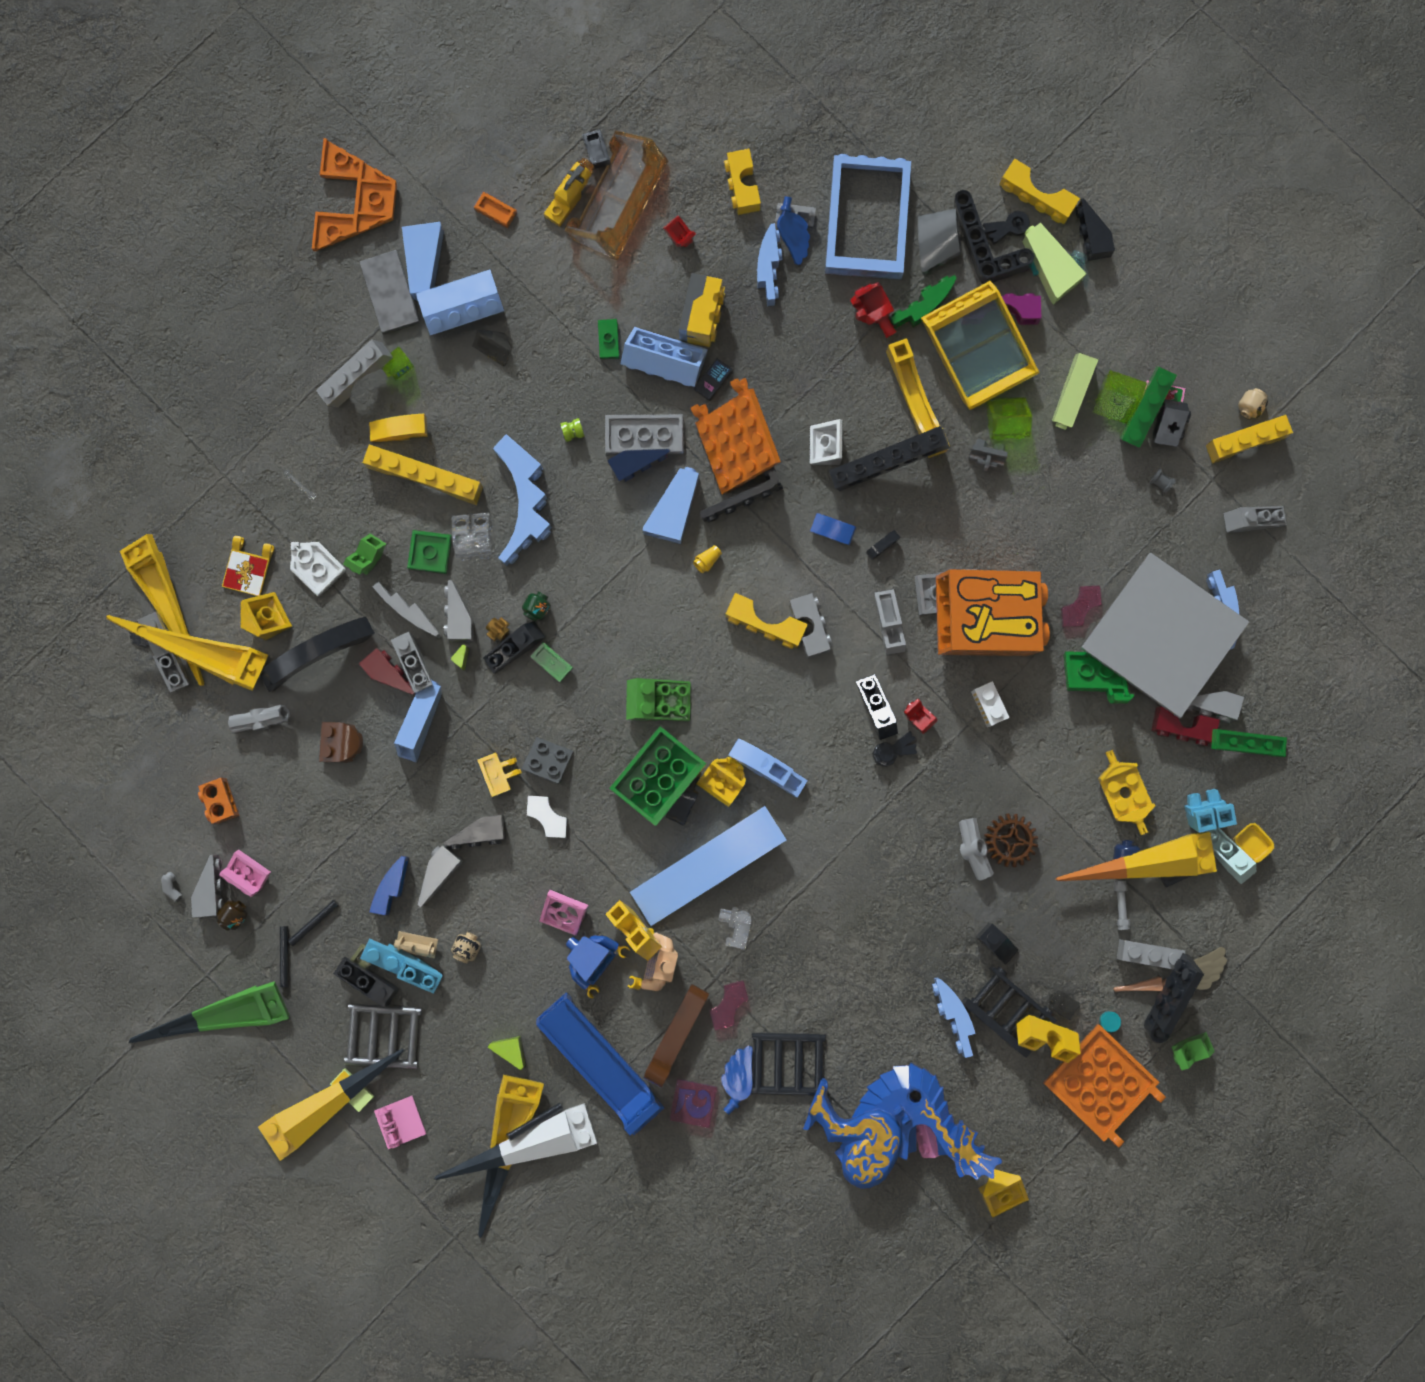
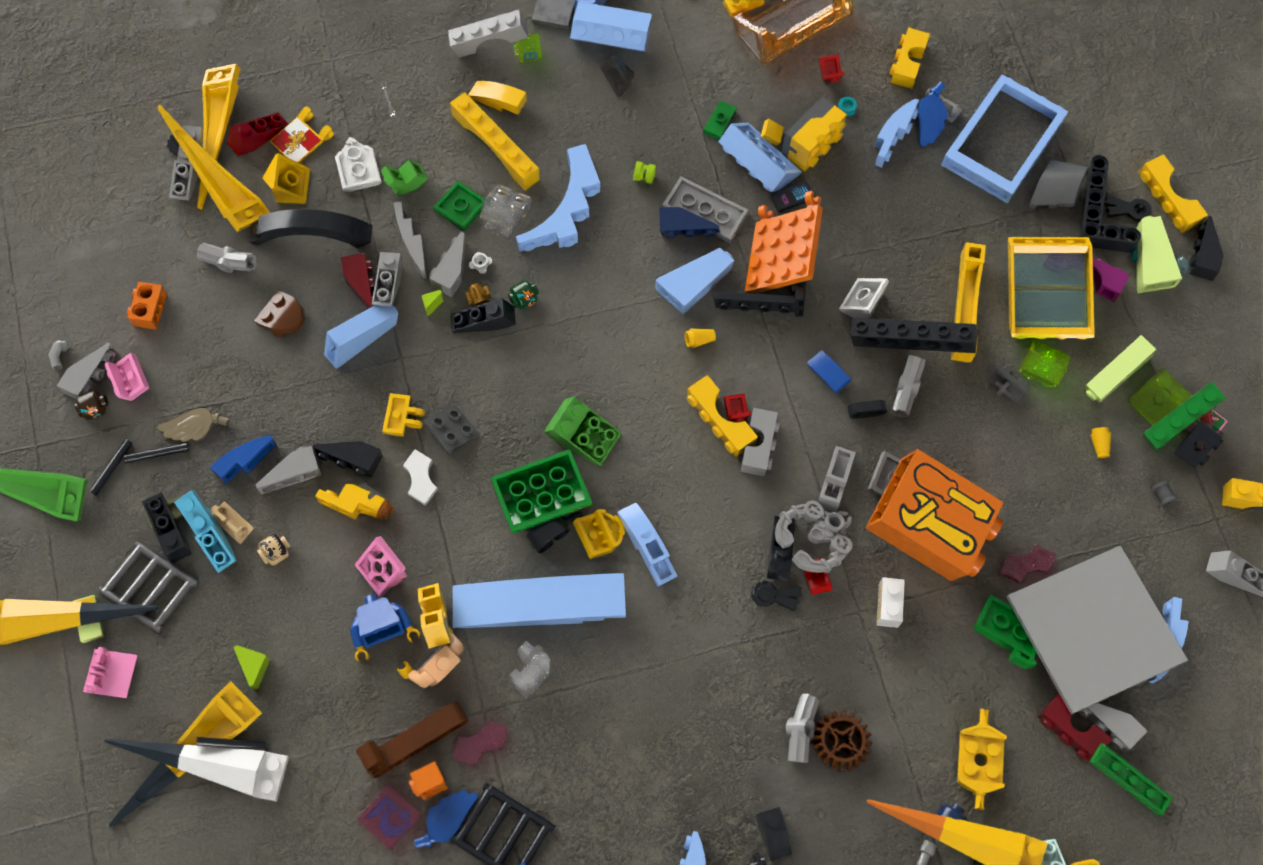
camera: 25 degrees right, 15 degrees down
(205, 586) = (253, 134): none -> dark red slope
(327, 882) = (192, 425): none -> dark tan animal
(475, 592) = (480, 257): none -> white plate
(508, 865) = (357, 499): none -> yellow plate
(551, 662) = (508, 348): green plate -> none
(599, 1064) = (325, 726): blue panel -> none
(661, 326) = (772, 132): none -> yellow tile
(709, 1062) = (427, 781): none -> orange brick
(712, 261) = (848, 105): none -> teal tile
(774, 606) = (736, 408): none -> red bracket
(874, 307) = (969, 209): red piece -> none
(903, 677) = (826, 528): none -> light grey piece
(906, 504) = (908, 386): none -> light grey piece
(930, 300) = (1024, 227): green slope -> none
(1089, 463) = (1101, 440): none -> yellow cone
(1210, 813) = (1056, 827): medium azure hips -> none

